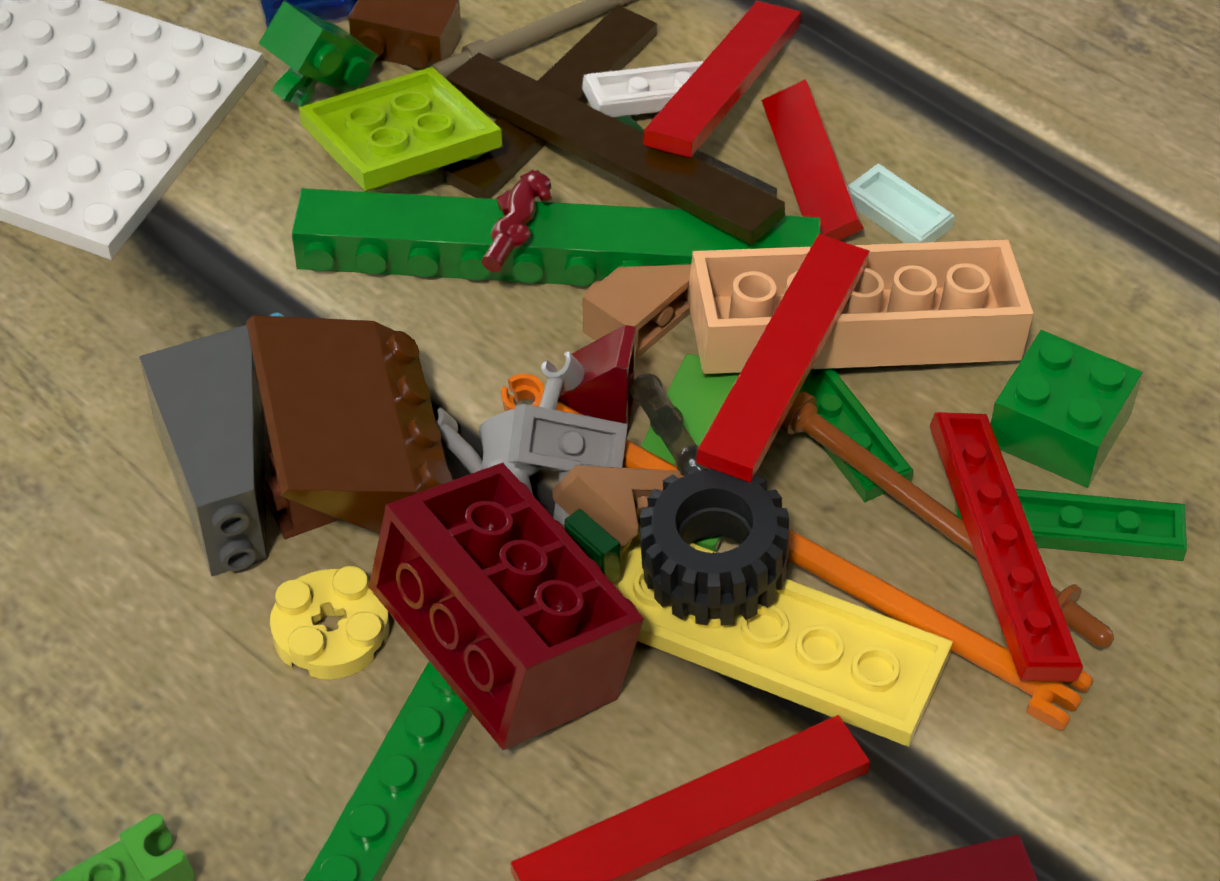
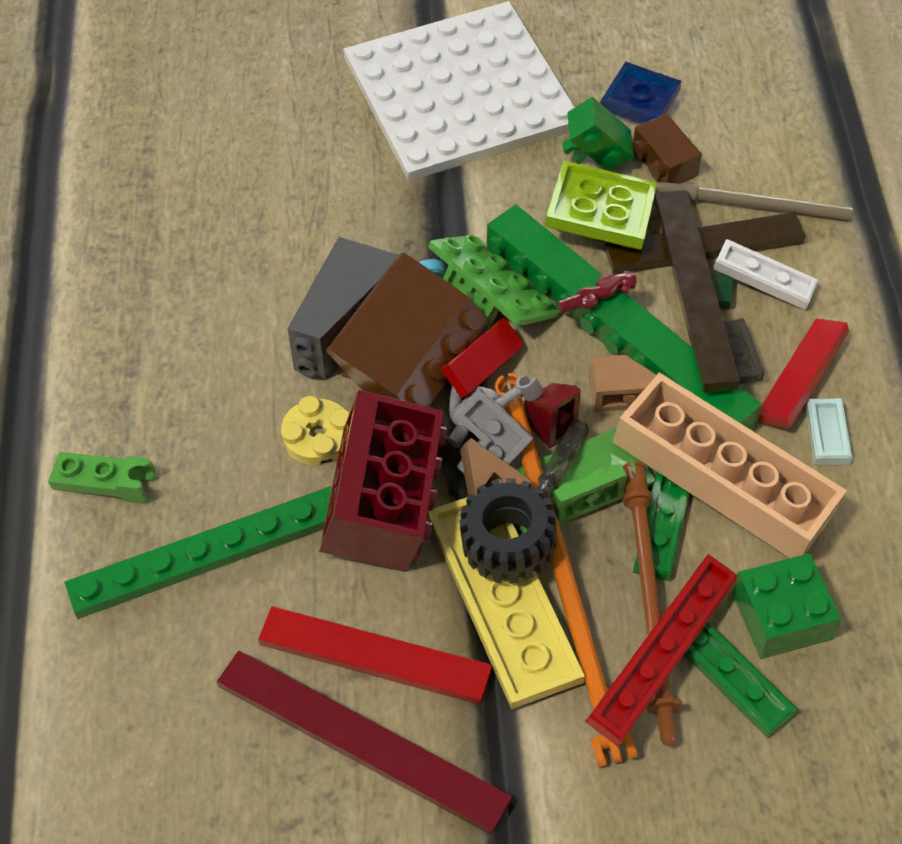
camera: 45 degrees right, 5 degrees up
(350, 295) = (491, 282): none -> bright green bracket
(454, 386) = (482, 357): none -> red tile
(595, 543) = (452, 487): dark green tile -> none
(721, 80) = (798, 290): red tile -> none
(782, 359) = (637, 460): red tile -> none

